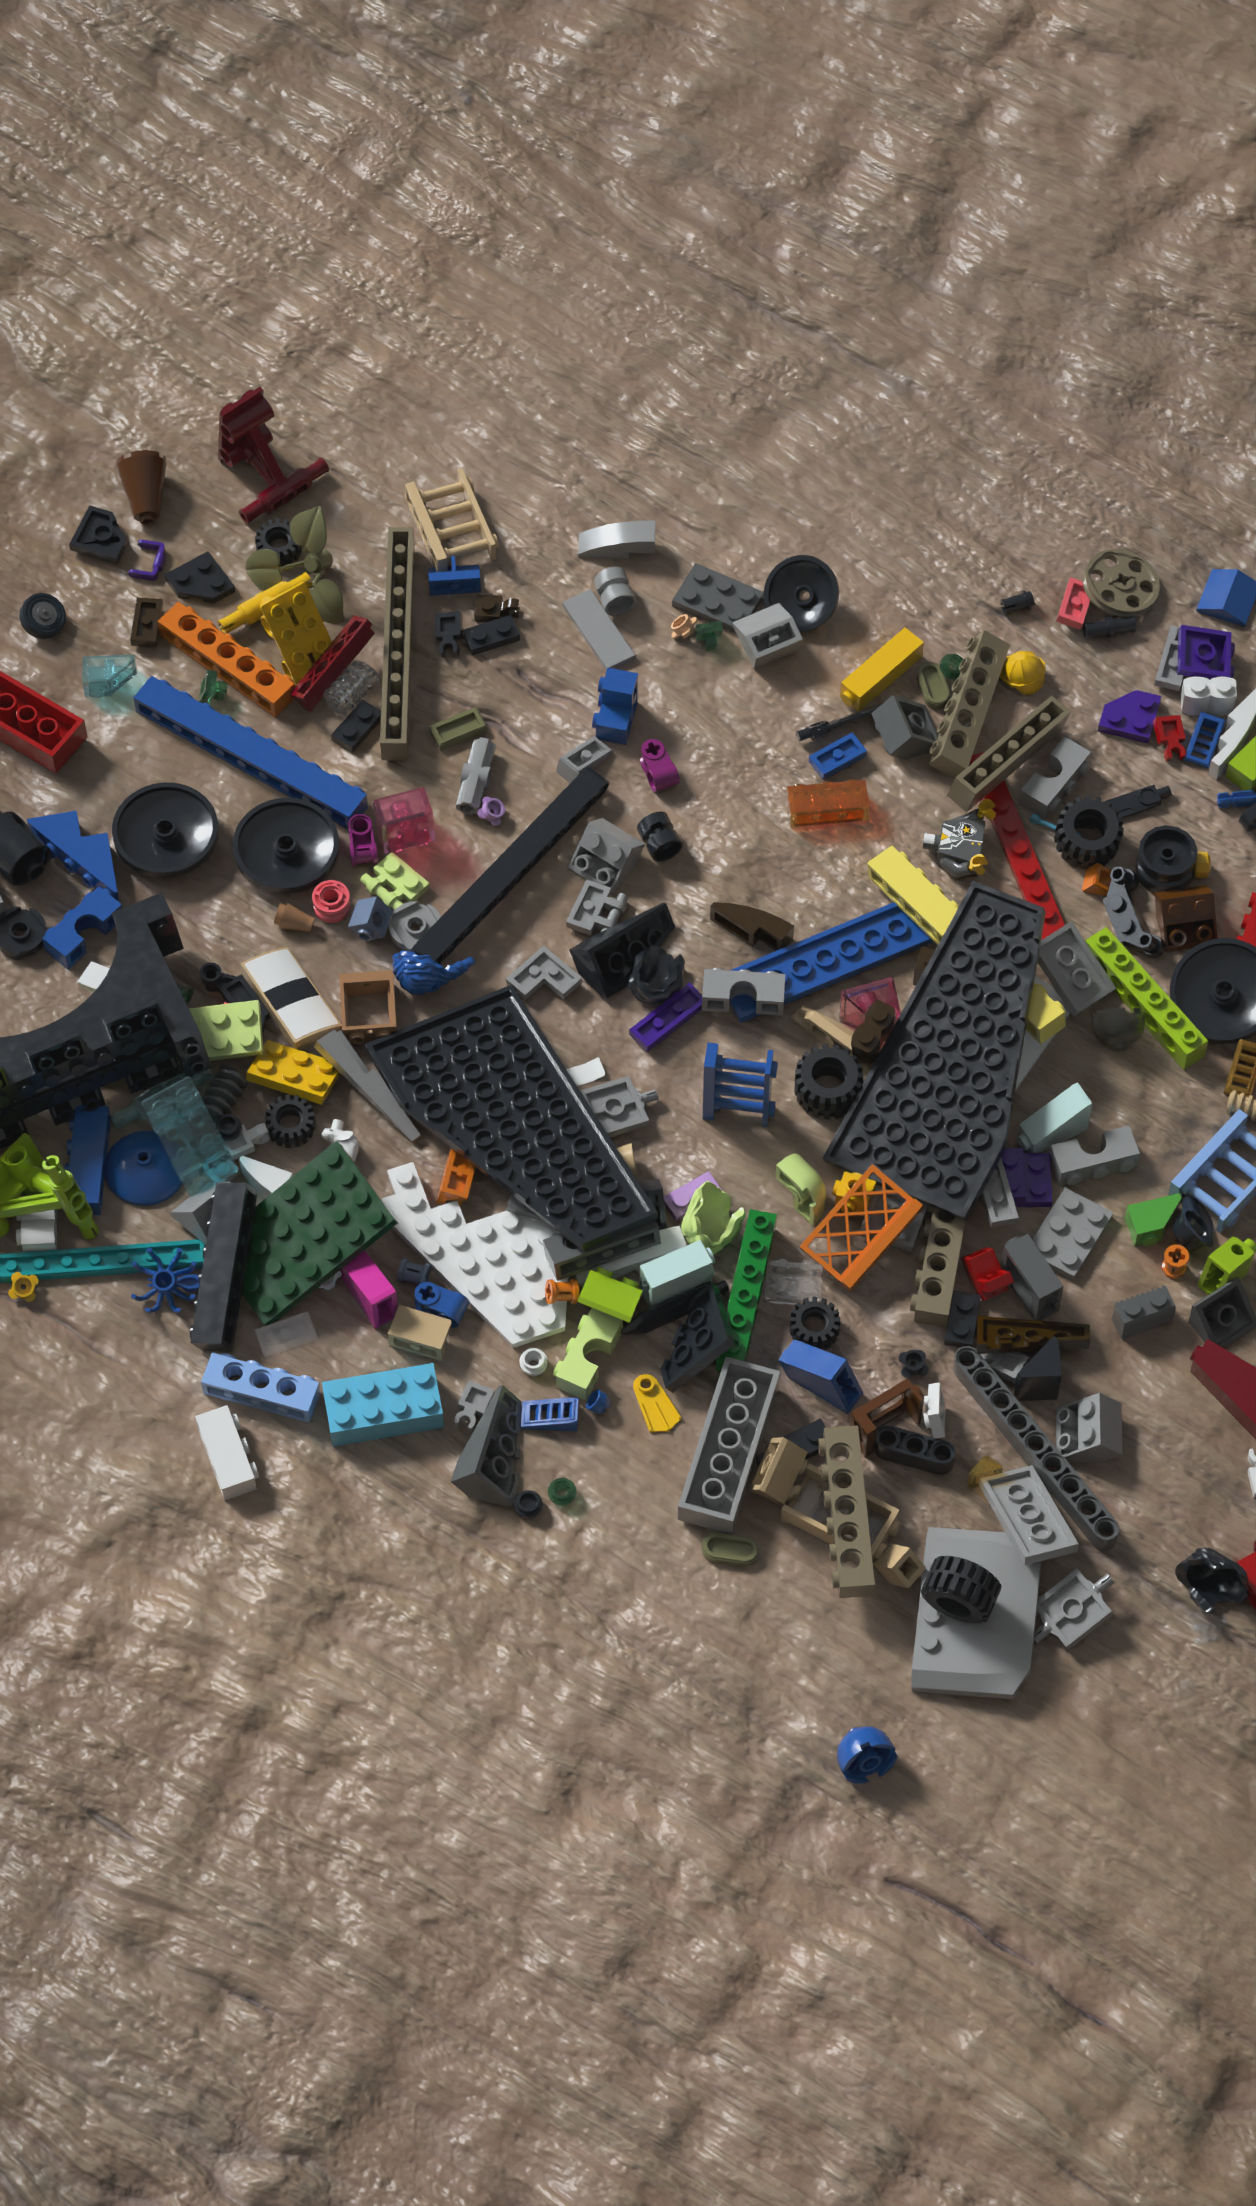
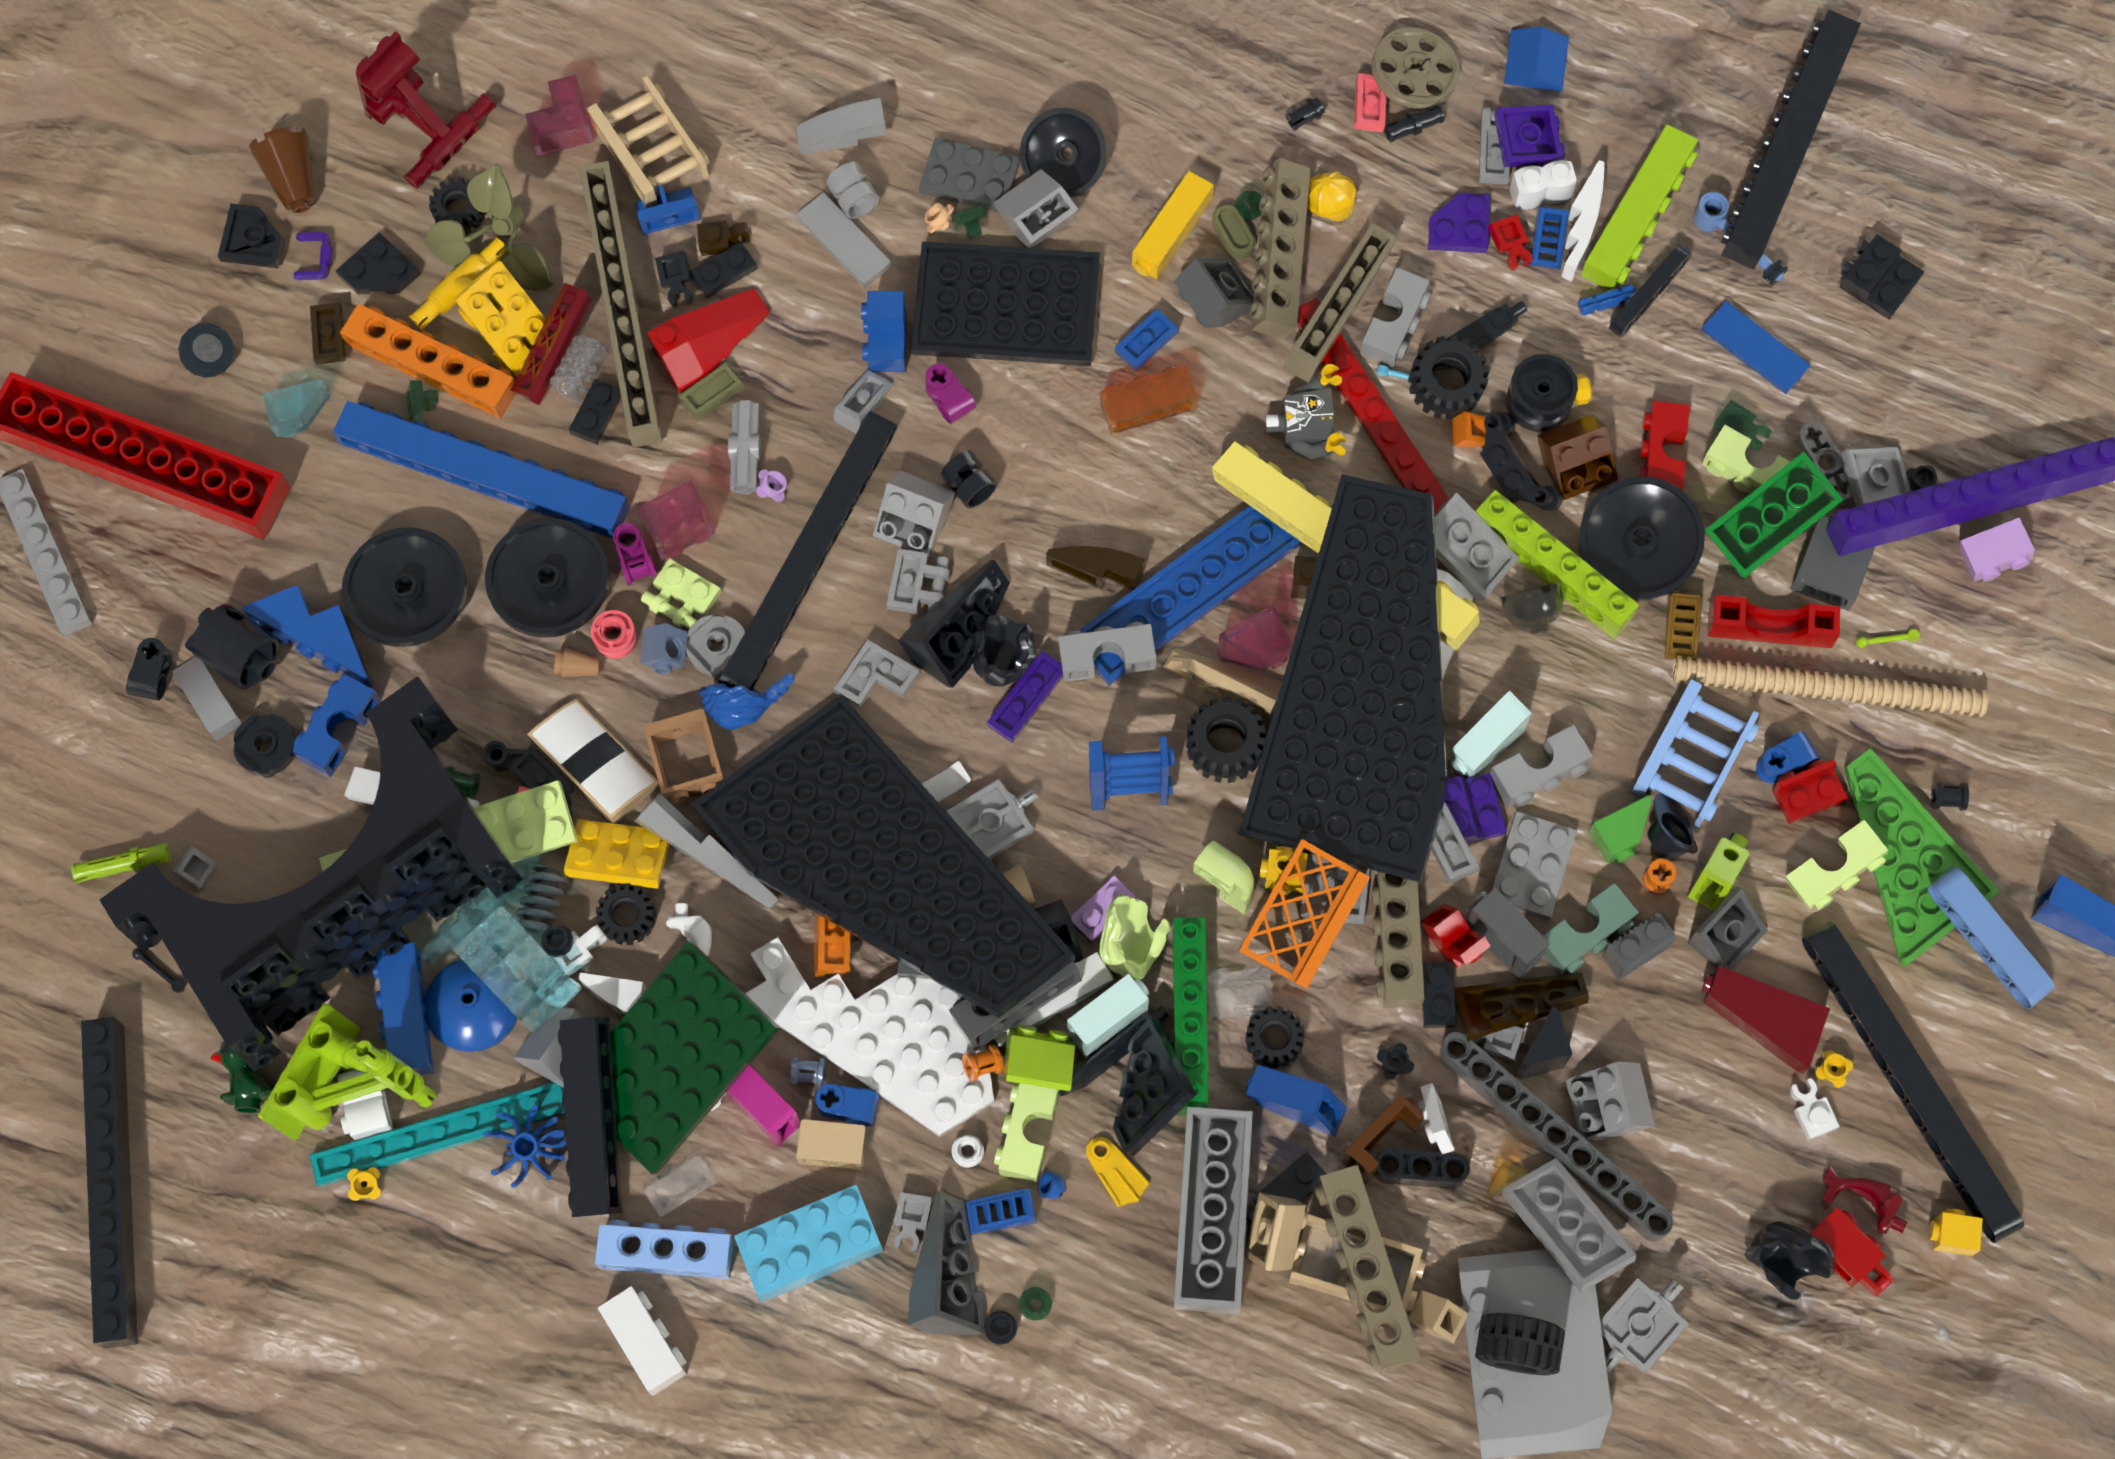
camera: 10 degrees left, 10 degrees up
(381, 494) = (565, 123): none -> clear pink brick
(459, 684) = (702, 338): none -> red wedge
(724, 705) = (1005, 303): none -> black plate
(730, 1549) = (1240, 1332): olive tile -> none
(823, 727) = (1123, 308): black piece -> none
(871, 1034) = (1270, 667): dark brown brick -> none
(1084, 1303) = (1611, 915): none -> sand green arch

